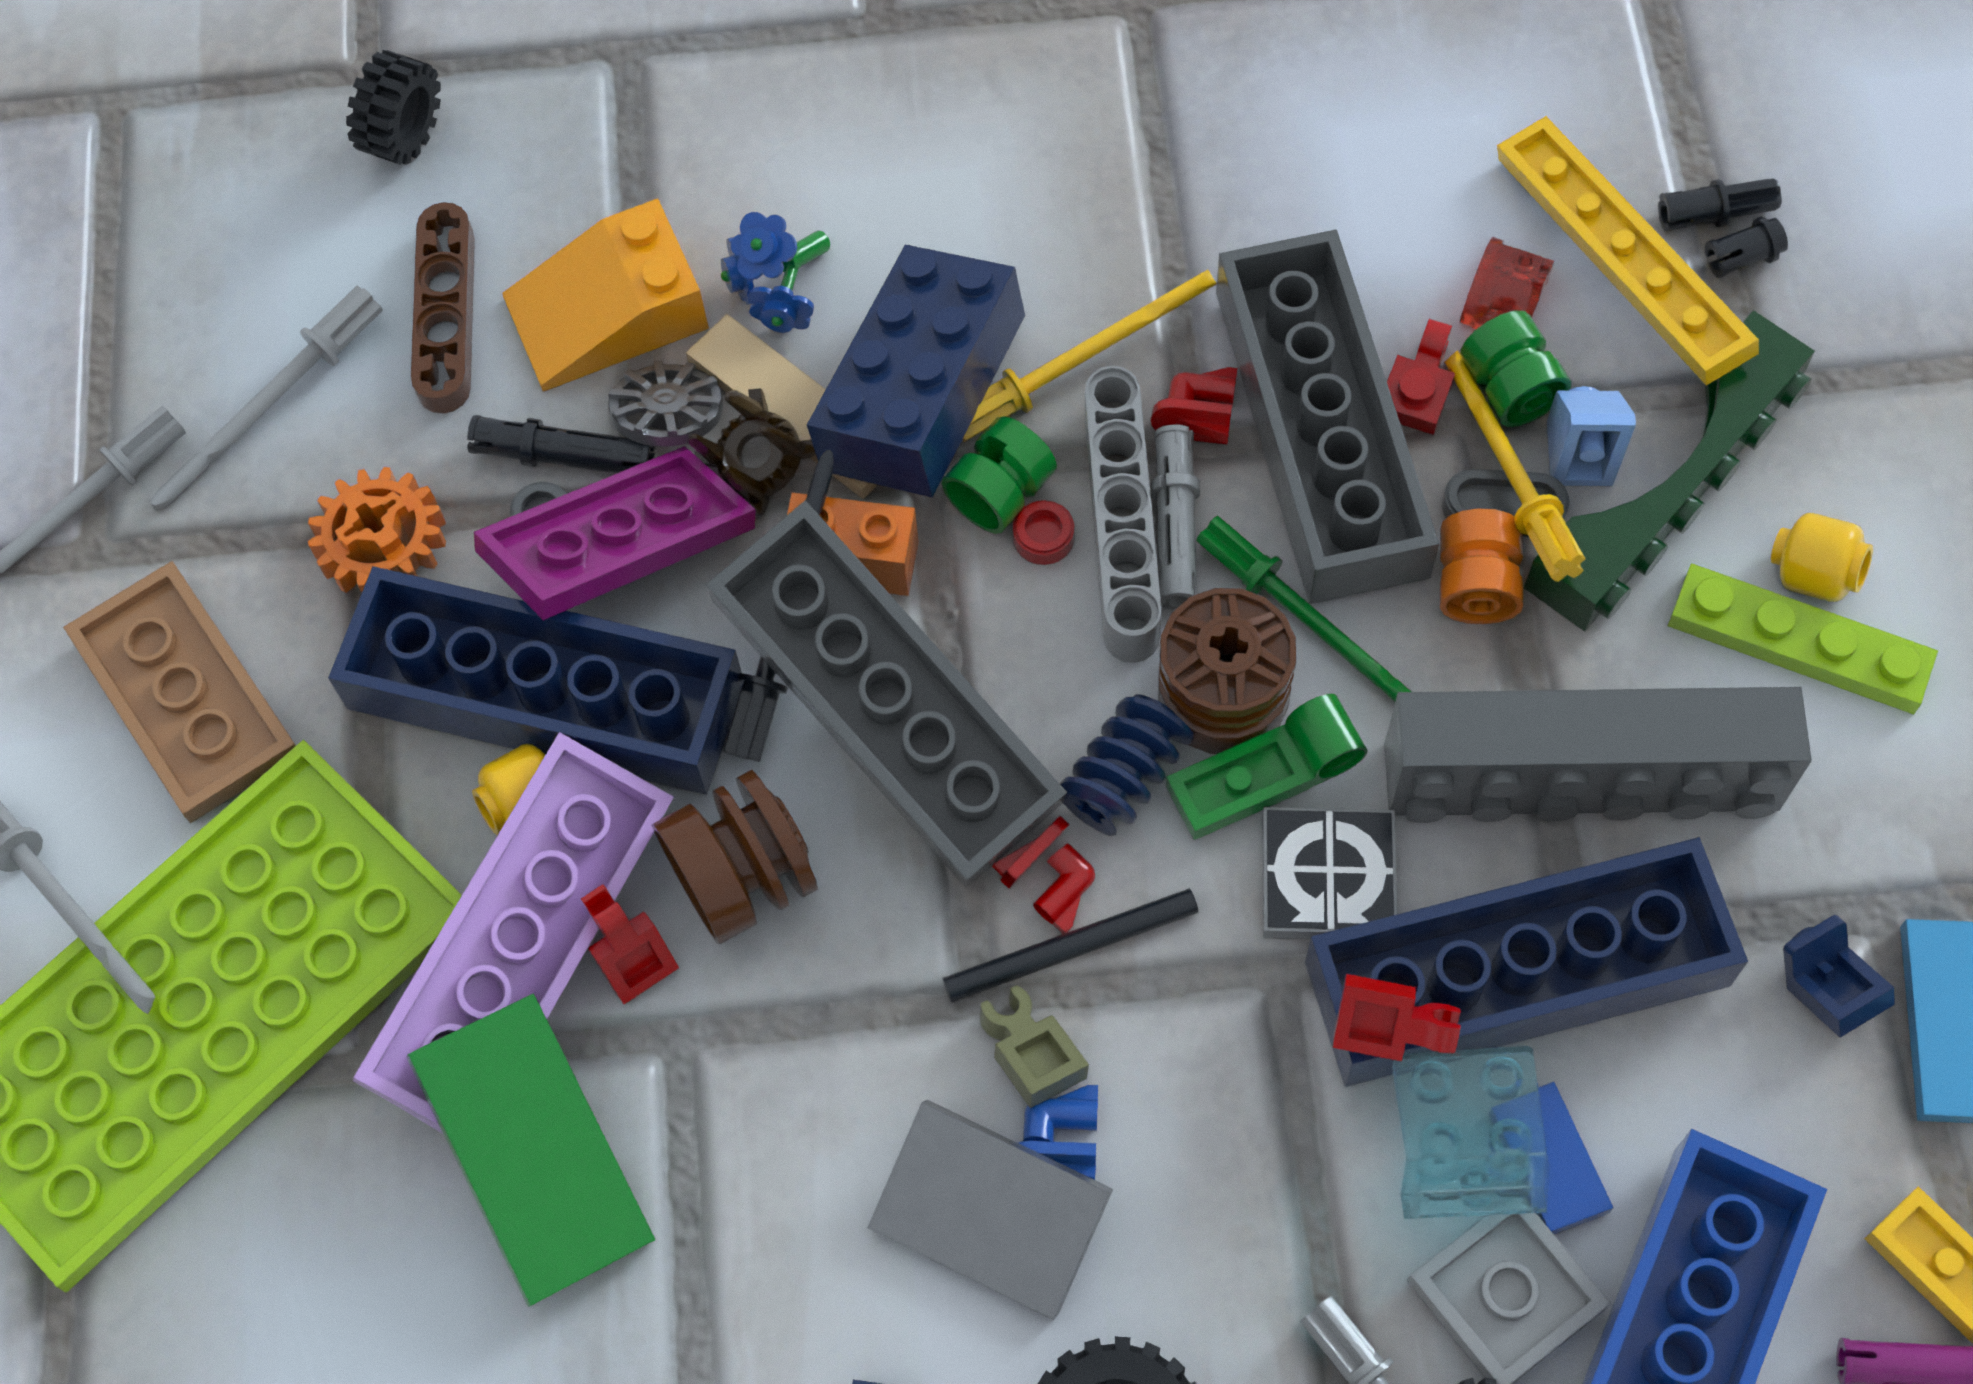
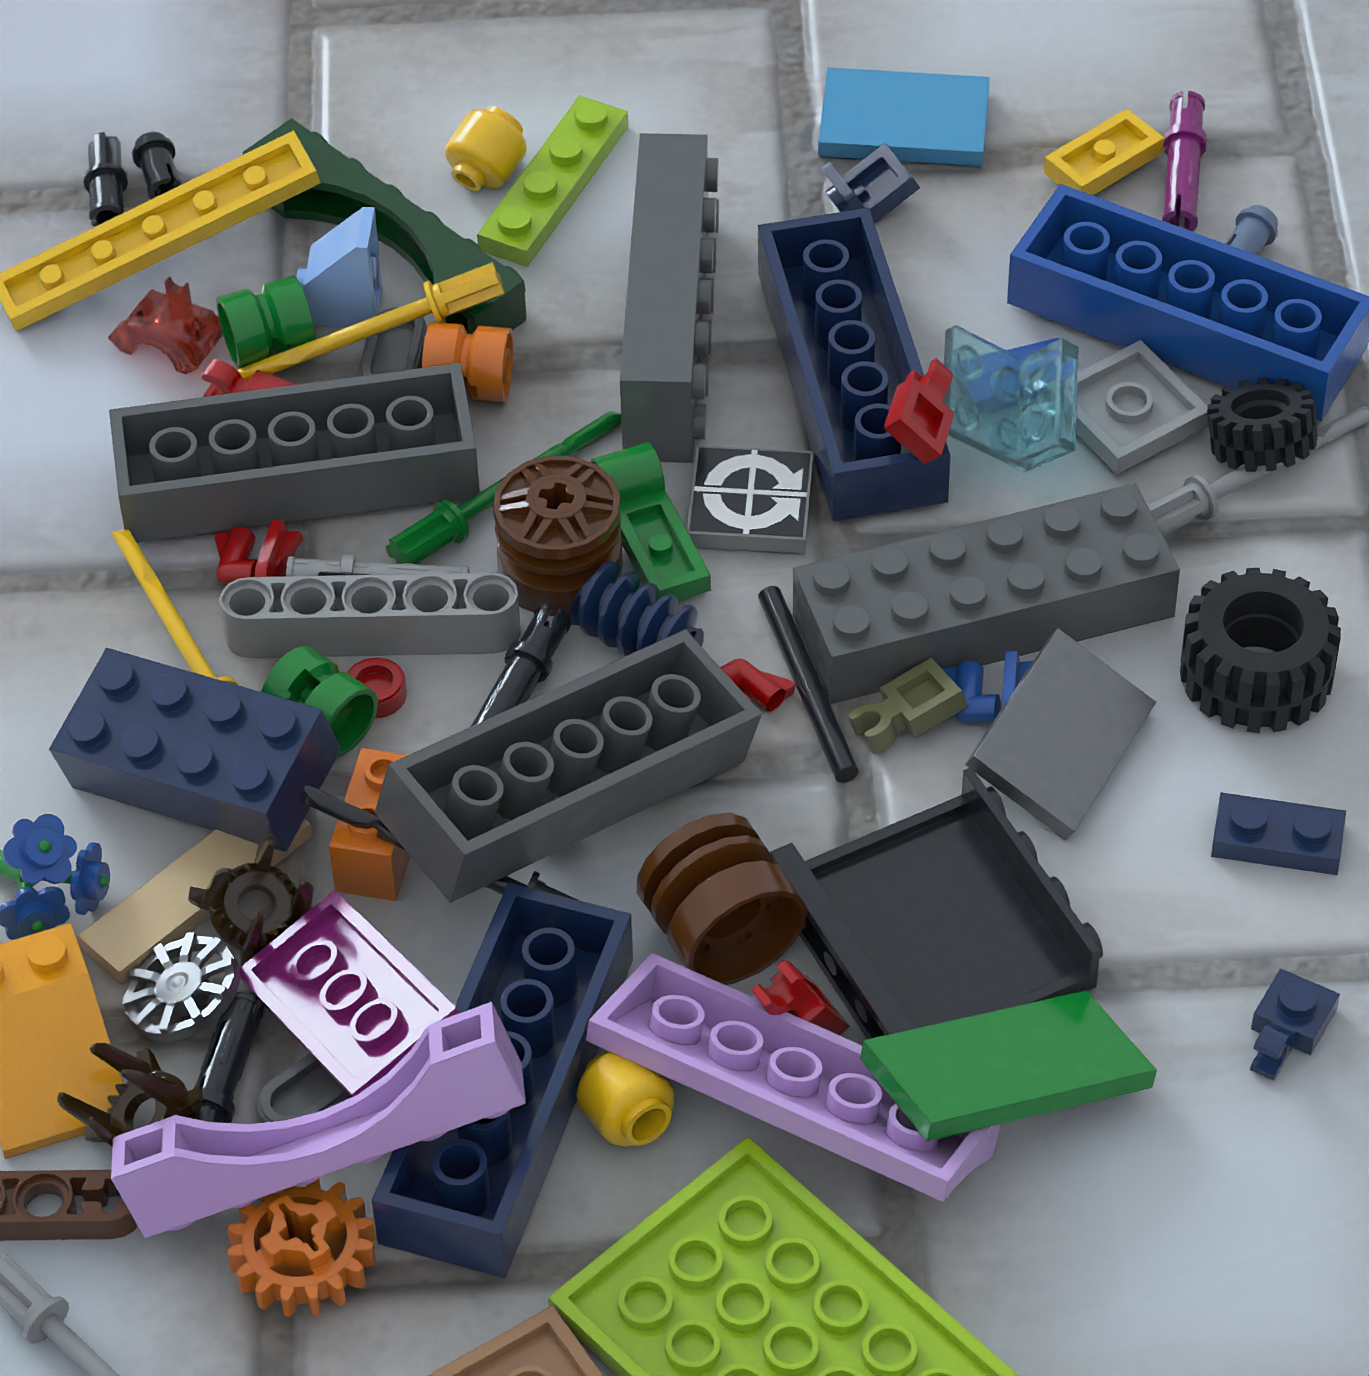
camera: 90 degrees left, 15 degrees down
(446, 573) = (197, 1168): none -> lavender arch
(492, 394) = (143, 1082): none -> dark brown piece
(740, 1080) = (941, 918): none -> black panel
(1045, 656) = (526, 662): none -> black pin
(1192, 1127) = (985, 590): none -> dark grey brick

